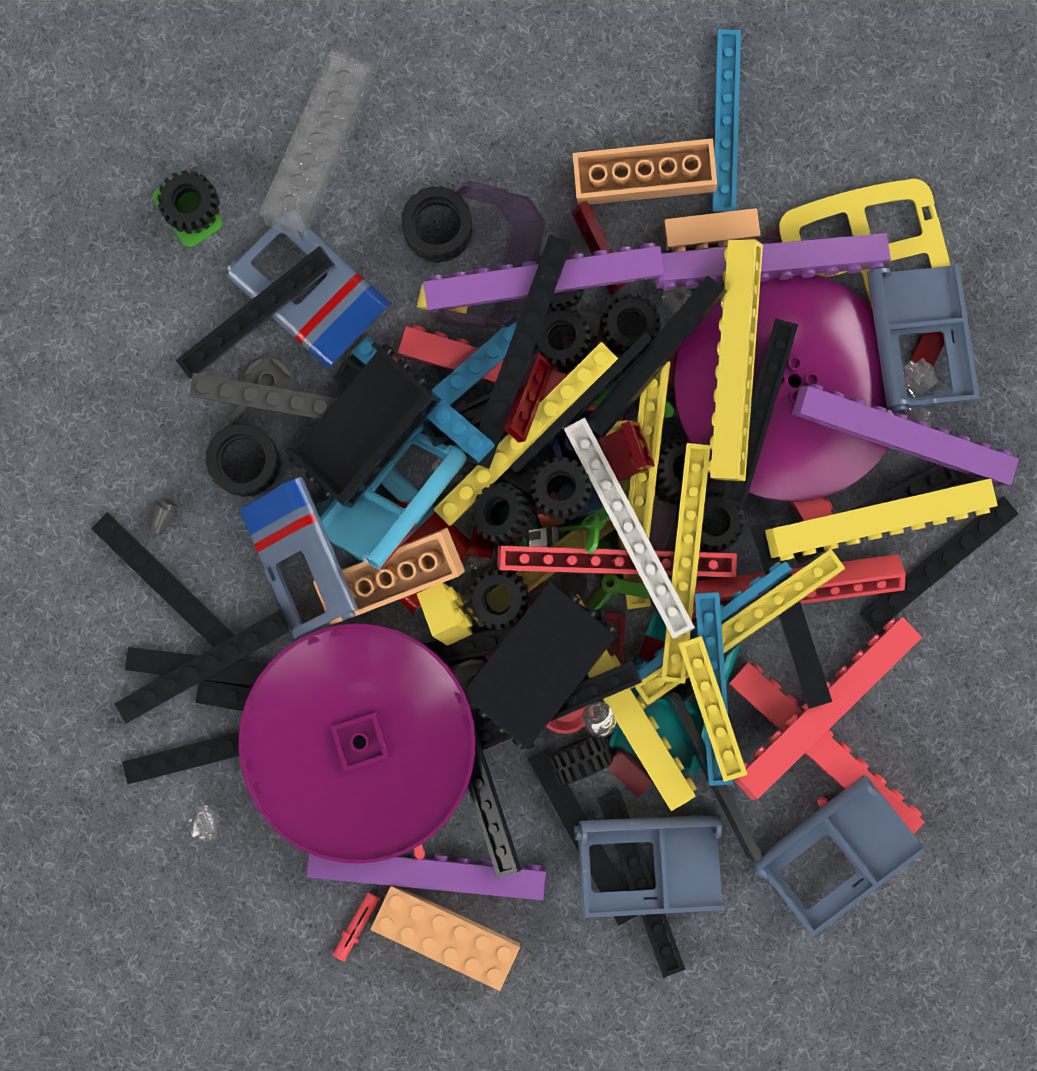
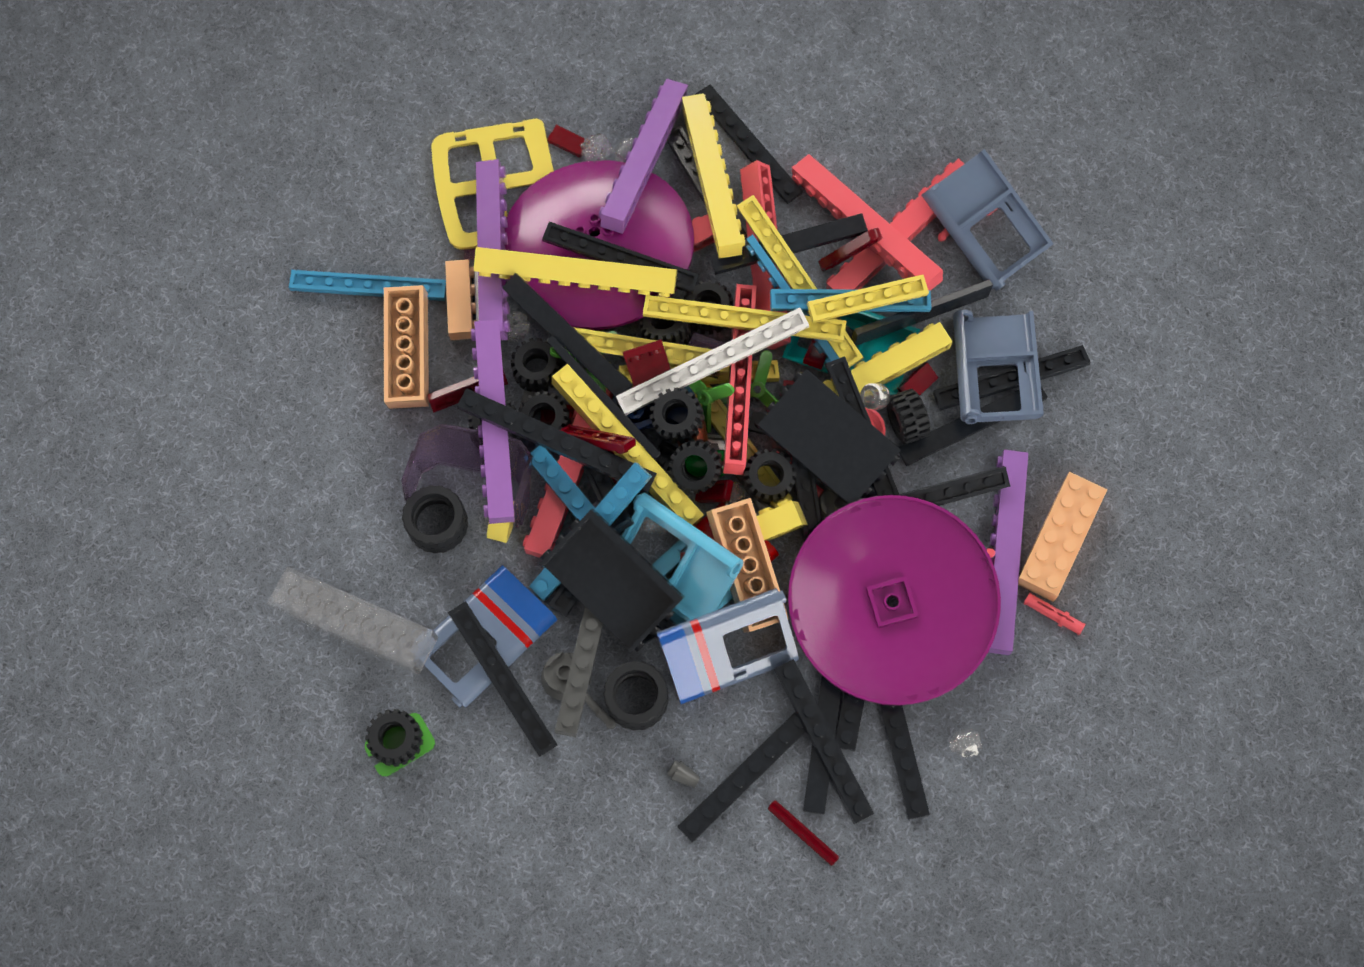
camera: 85 degrees left, 15 degrees down
(105, 647) = (803, 832): none -> dark red axle
(789, 689) = (850, 249): none -> dark red beam
(920, 304) = (535, 141): sand blue piece -> none

